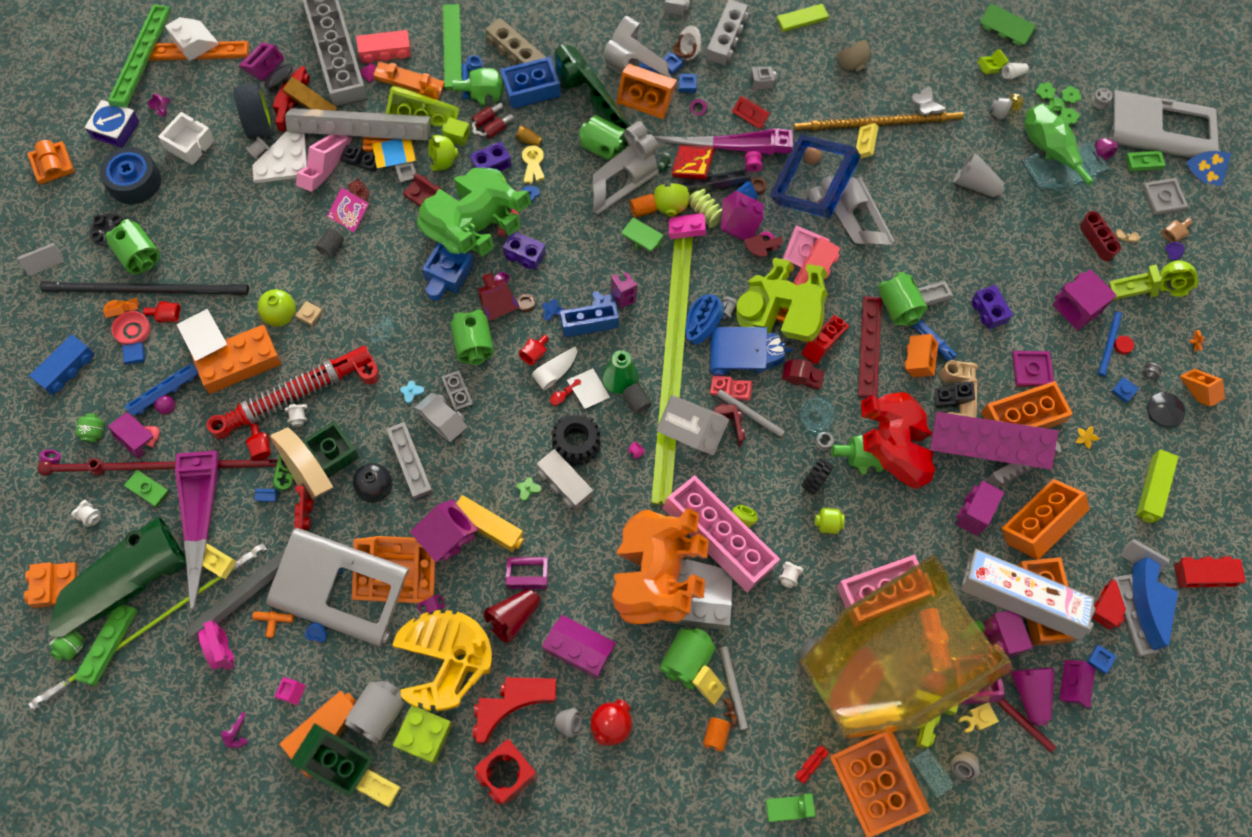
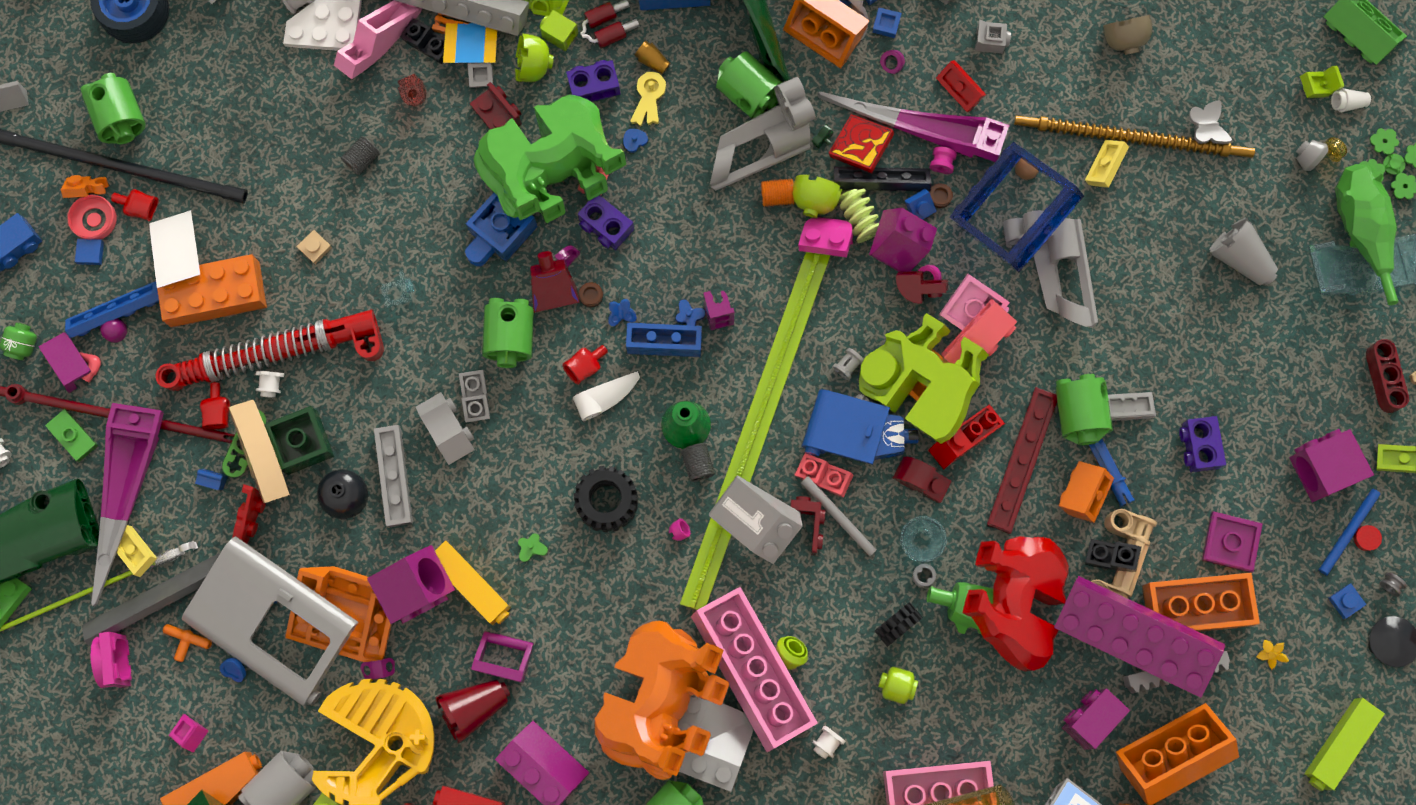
camera: 20 degrees right, 10 degrees up
(102, 225) = (86, 69): black dish -> none
(229, 735) = (106, 770): magenta piece -> none
(276, 307) = (275, 230): lime cylinder -> none
(347, 209) = (393, 113): dark pink sticker -> none
(411, 391) = (418, 382): medium azure piece -> none
(558, 397) = (600, 435): red piece -> none
(564, 480) = (577, 549): brick -> none
(590, 390) = (641, 431): white sticker -> none
(642, 235) = (764, 236): bright green panel -> none
(701, 325) = (810, 385): blue piece -> none

